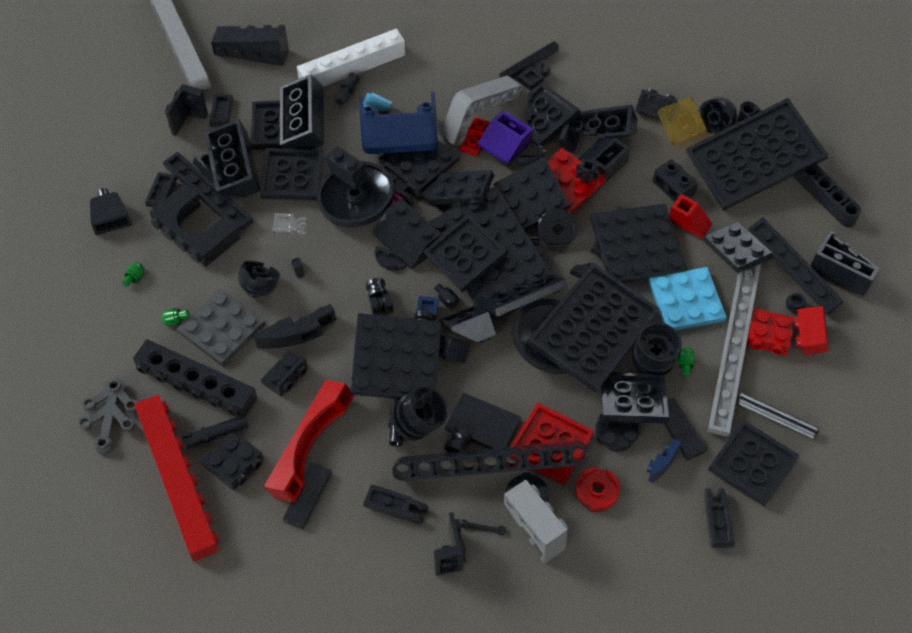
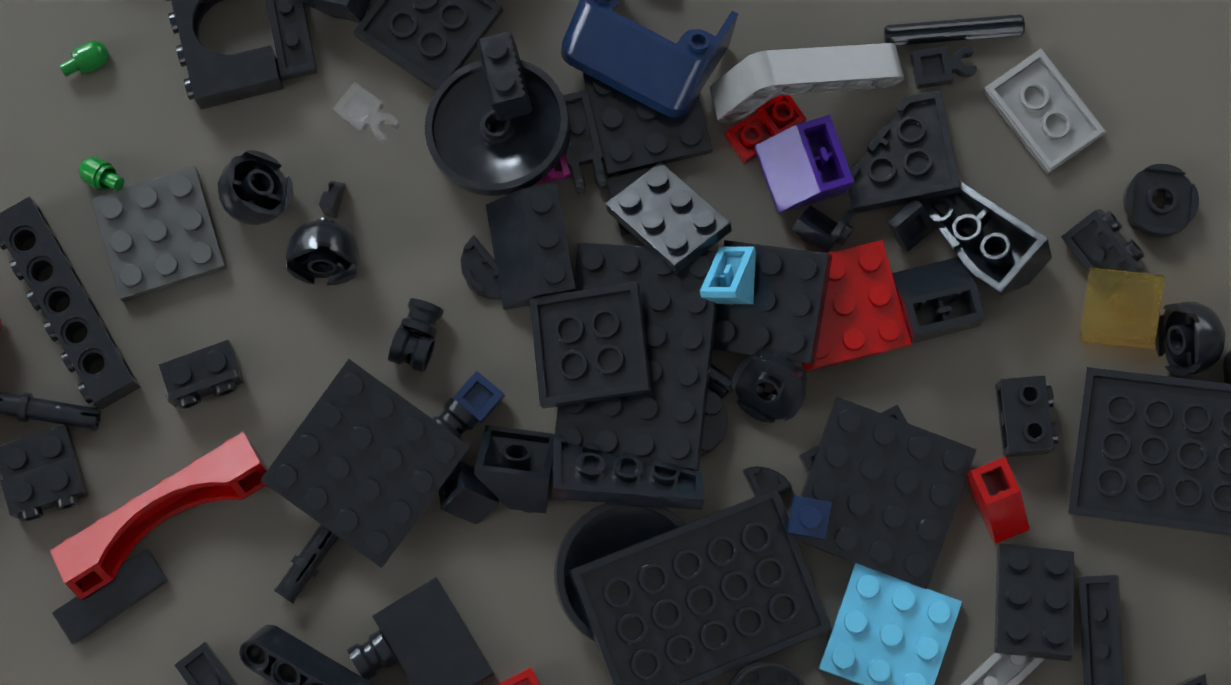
camera: 35 degrees right, 20 degrees up
(290, 333) = (245, 309): black slope -> none
(310, 287) = (323, 251): none -> black cylinder
(419, 413) = (341, 596): black wheel -> none
(447, 296) = (522, 395): black cylinder -> none
(509, 191) = (731, 276): none -> medium azure slope
(587, 171) = (891, 318): black gear -> none
(590, 71) = (1044, 111): none -> light grey tile
(616, 265) = (809, 517): none -> dark blue plate
(664, 85) = (1177, 188): none -> black plate

